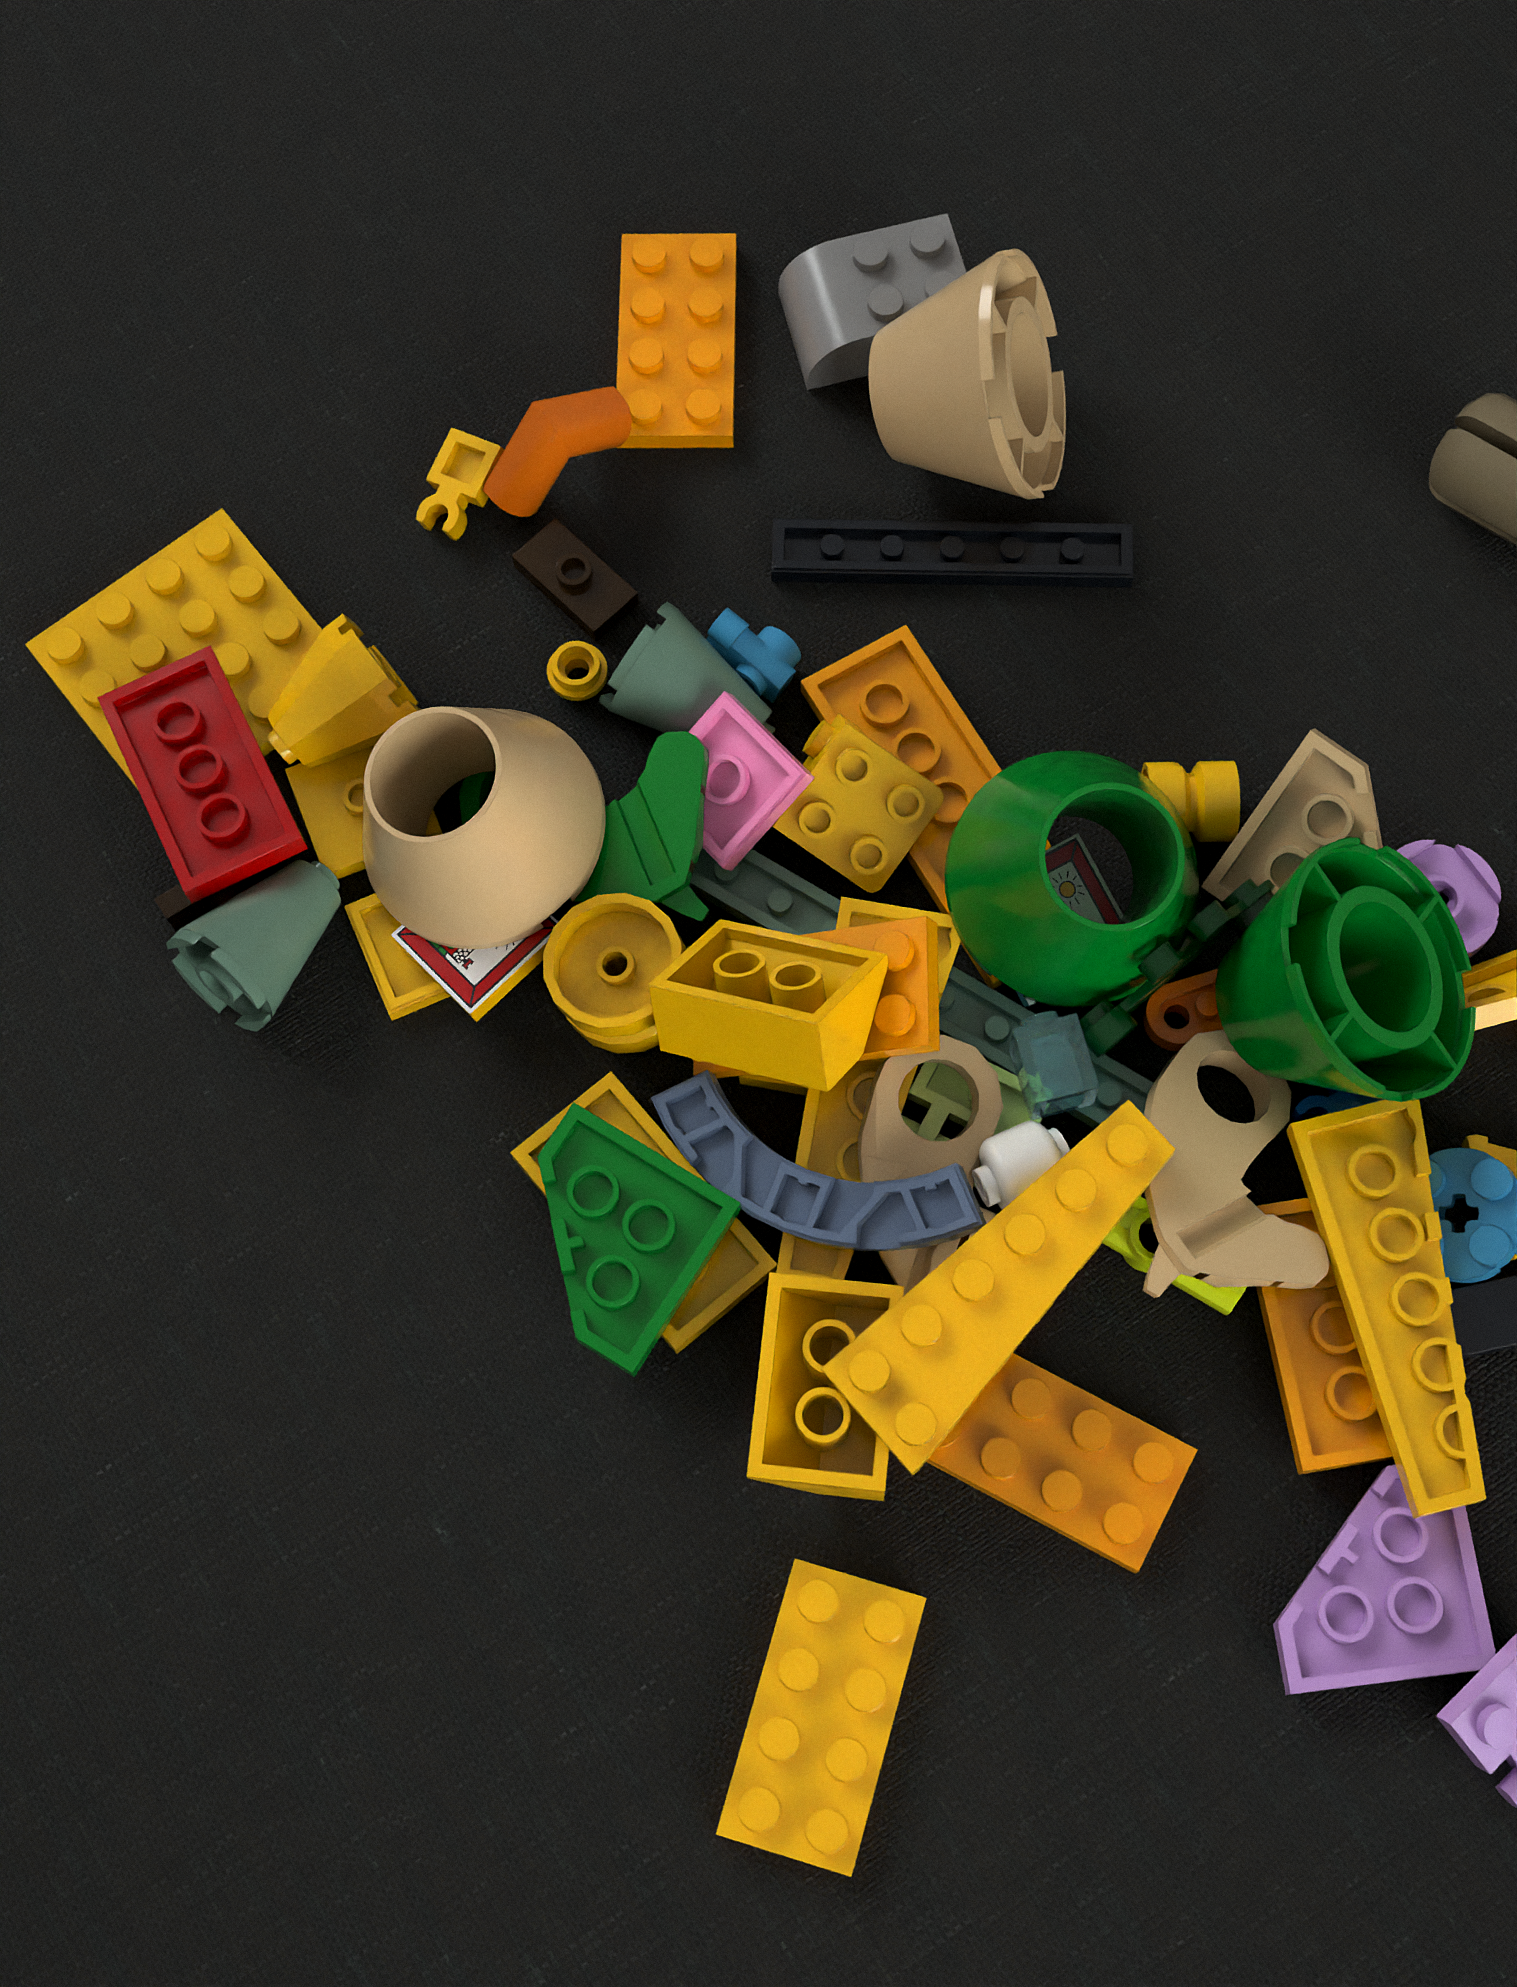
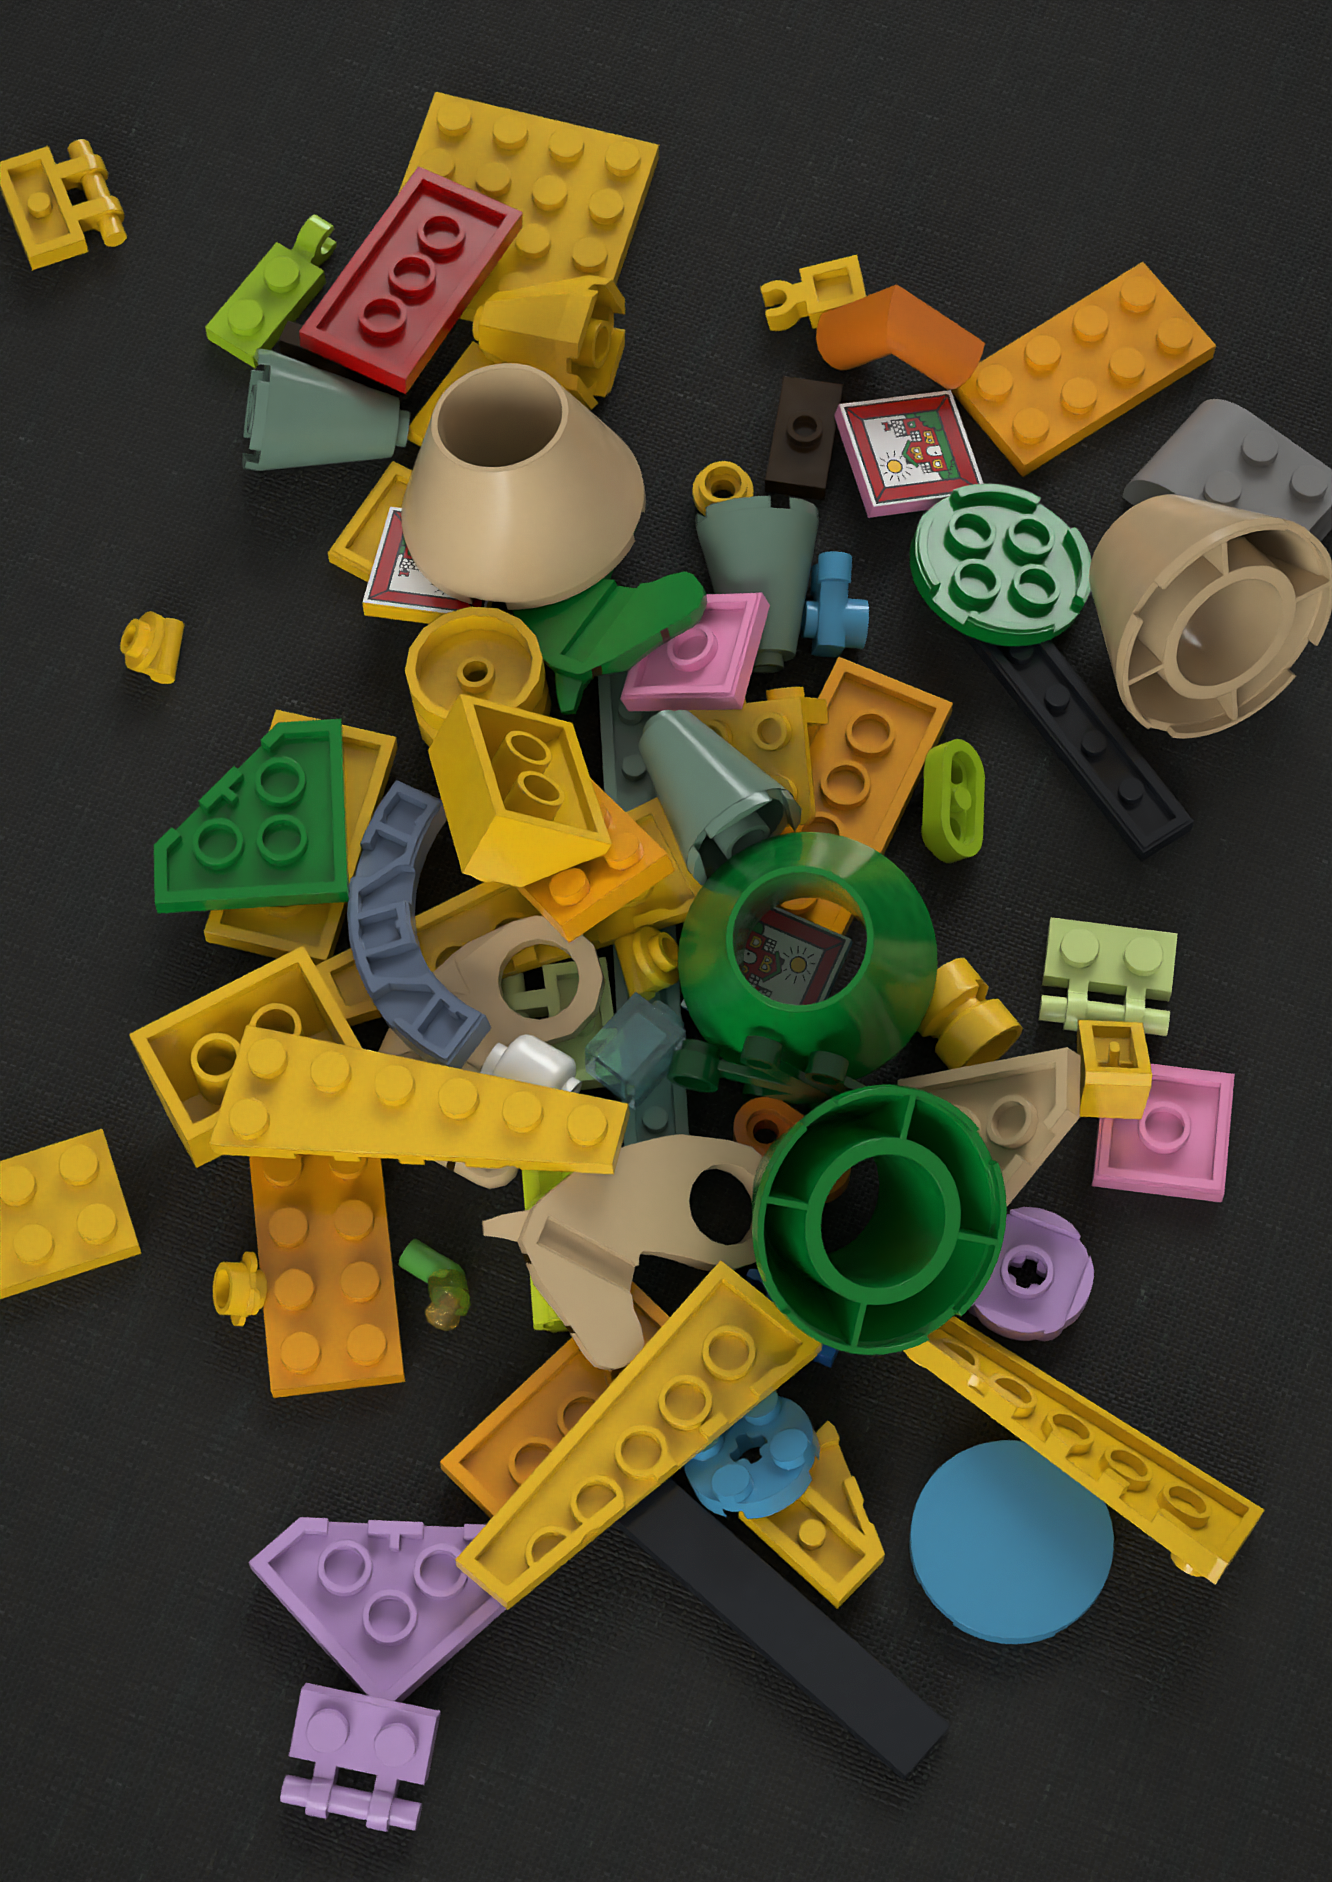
camera: 50 degrees right, 5 degrees down
(107, 900) = (273, 293): none -> lime plate
(364, 1217) = (153, 646): none -> yellow plate
(656, 510) = (906, 451): none -> tile
(809, 510) = (1000, 565): none -> tile
(875, 850) = (711, 792): none -> sand green cone
(975, 1005) = (648, 961): none -> yellow plate
(976, 673) = (953, 801): none -> lime plate
(1029, 1536) = (239, 1288): none -> yellow plate
(1135, 1359) = (445, 1284): none -> clear yellow arm
(1206, 662) = (1109, 962): none -> yellowish green plate
(1307, 703) = (1113, 1069): none -> yellow slope
(1379, 717) = (1176, 1144): none -> bright pink tile

